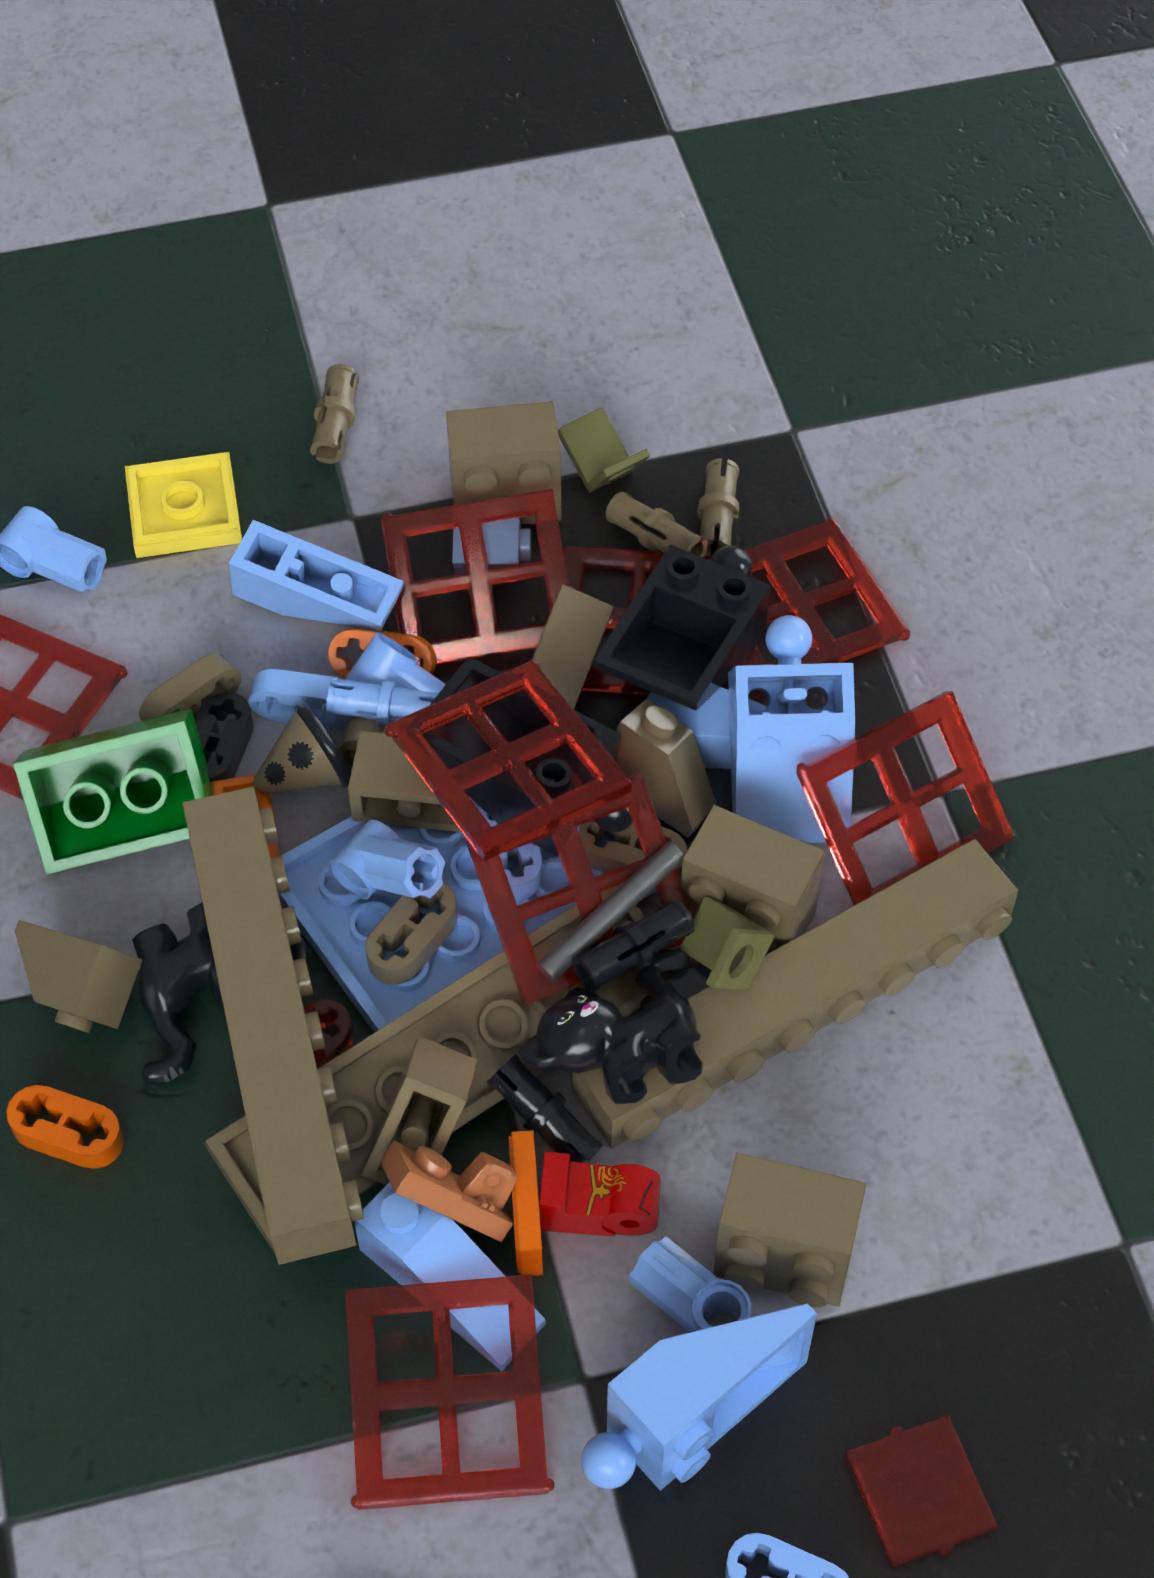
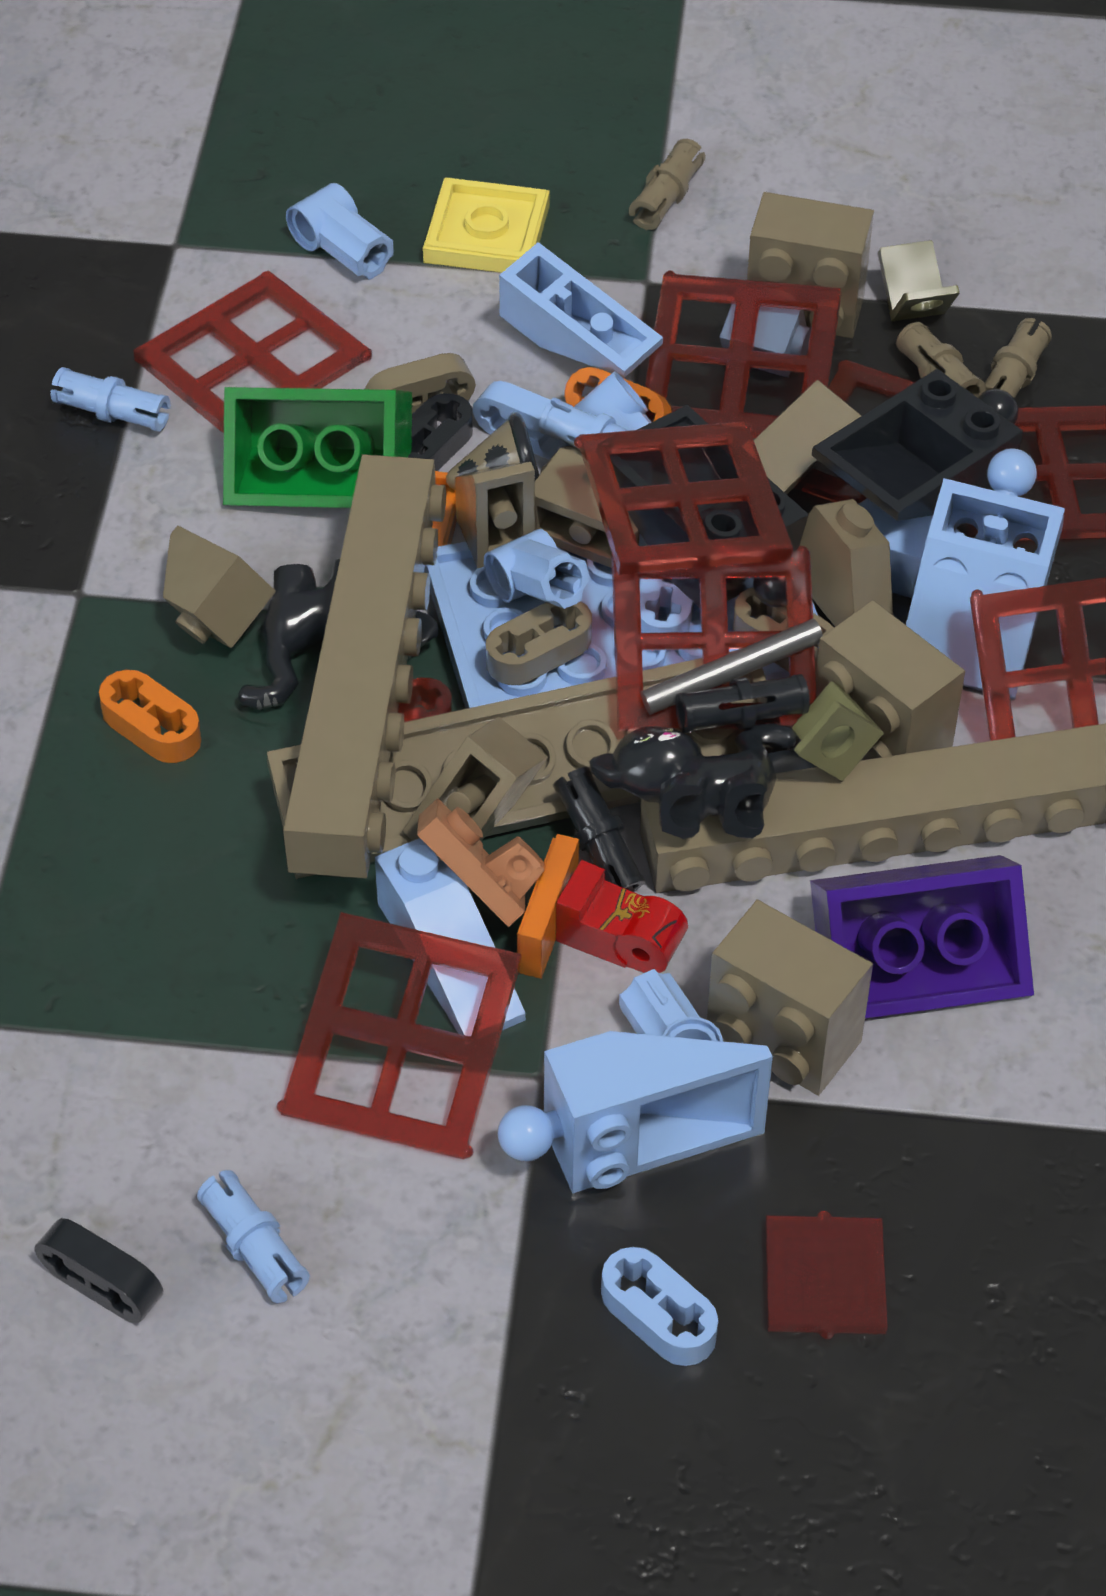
camera: 20 degrees right, 5 degrees down
(322, 809) = (495, 506): none -> dark tan slope
(876, 1108) = (932, 932): none -> dark purple slope

